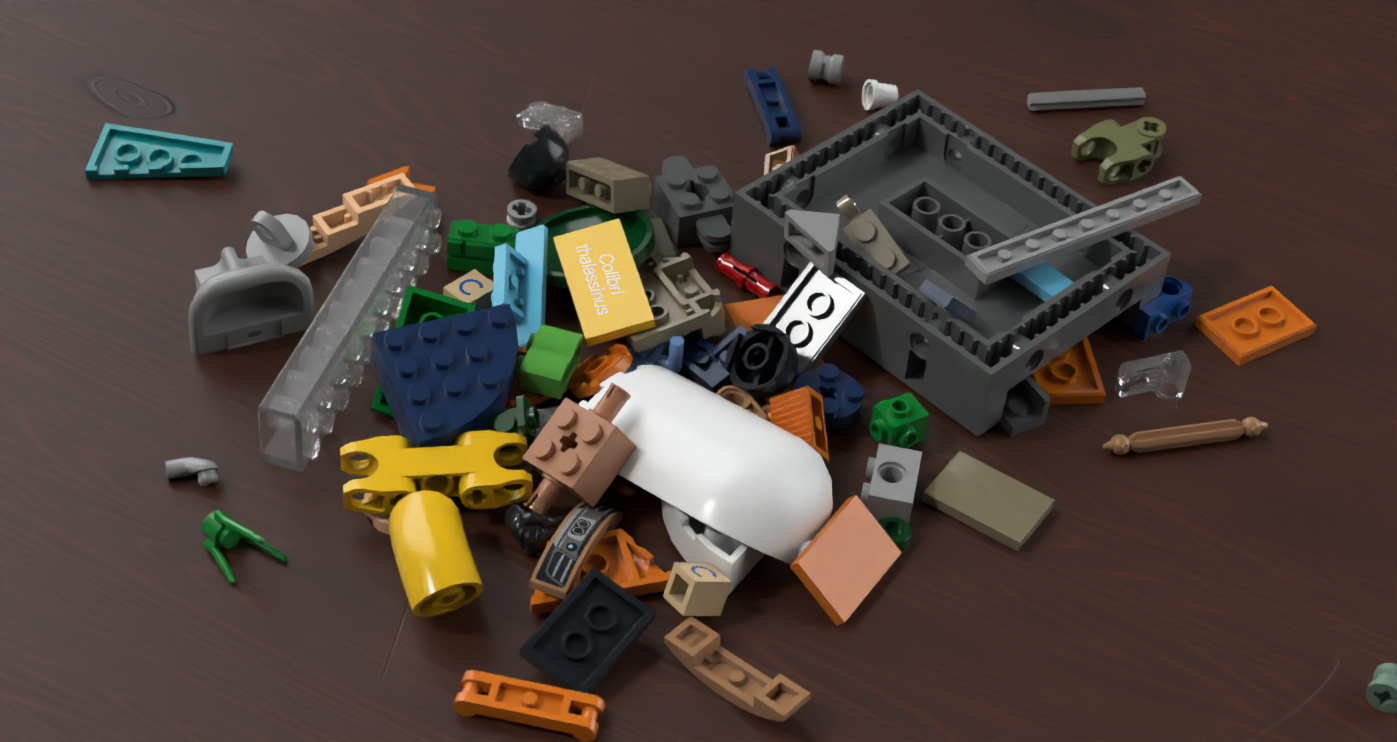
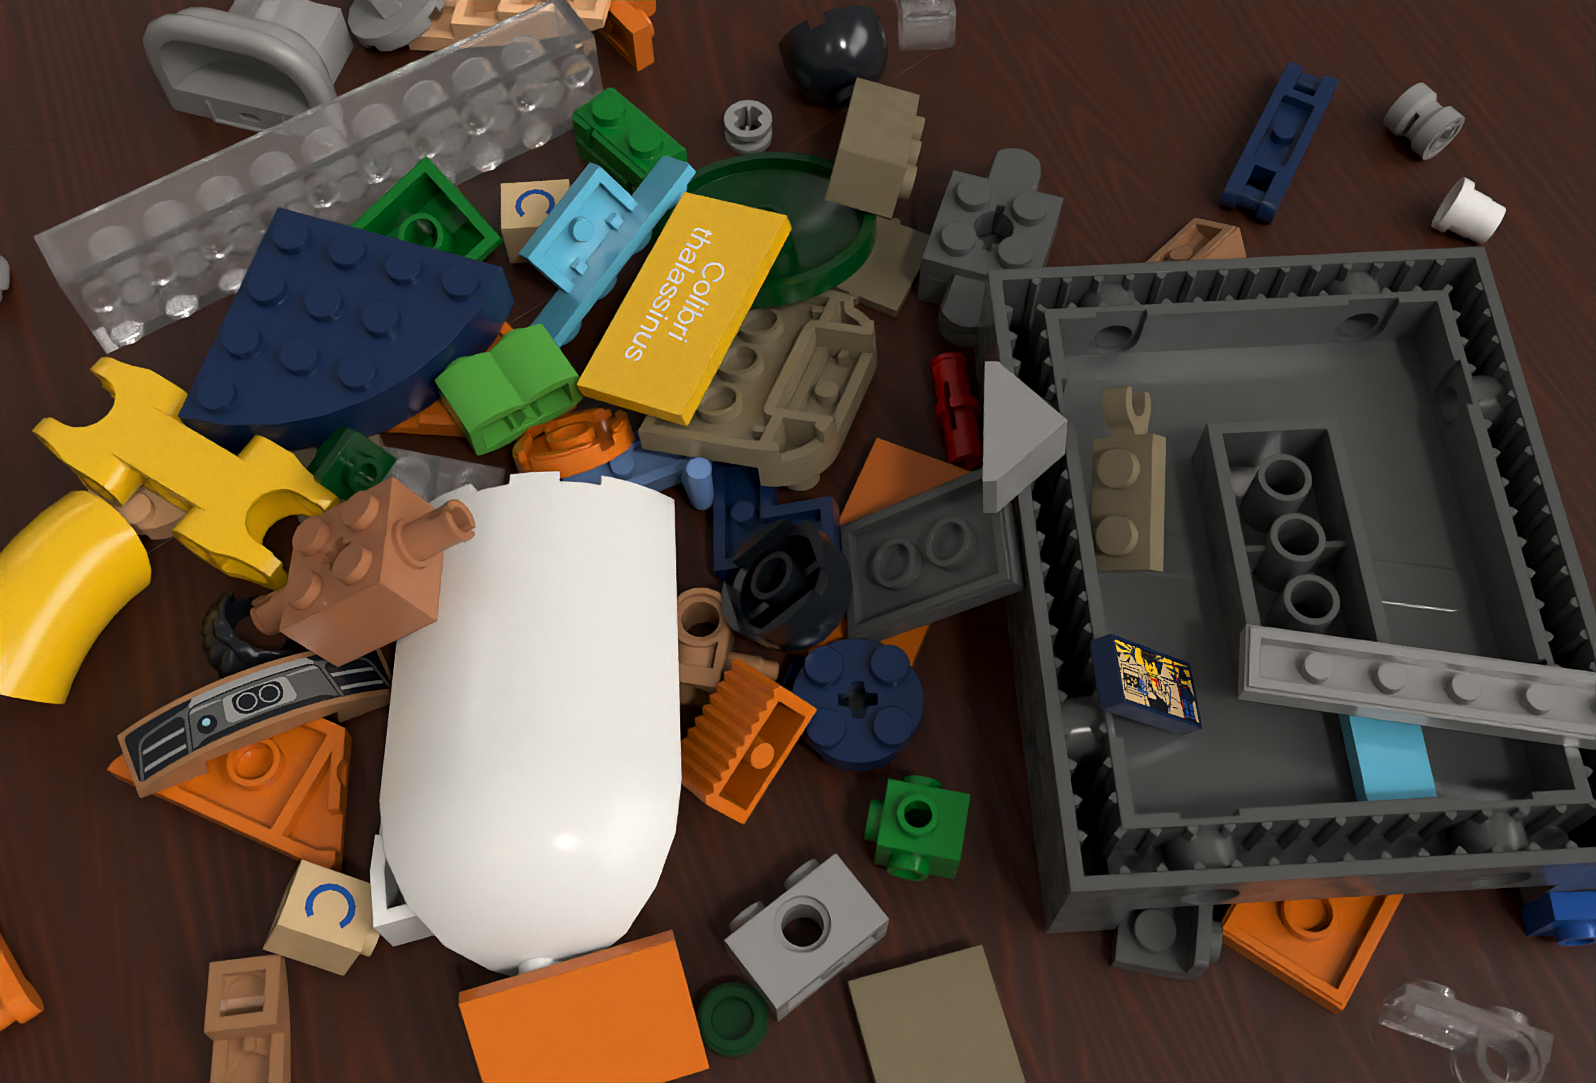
camera: 45 degrees right, 20 degrees up
(587, 633) = (115, 879): black plate -> none

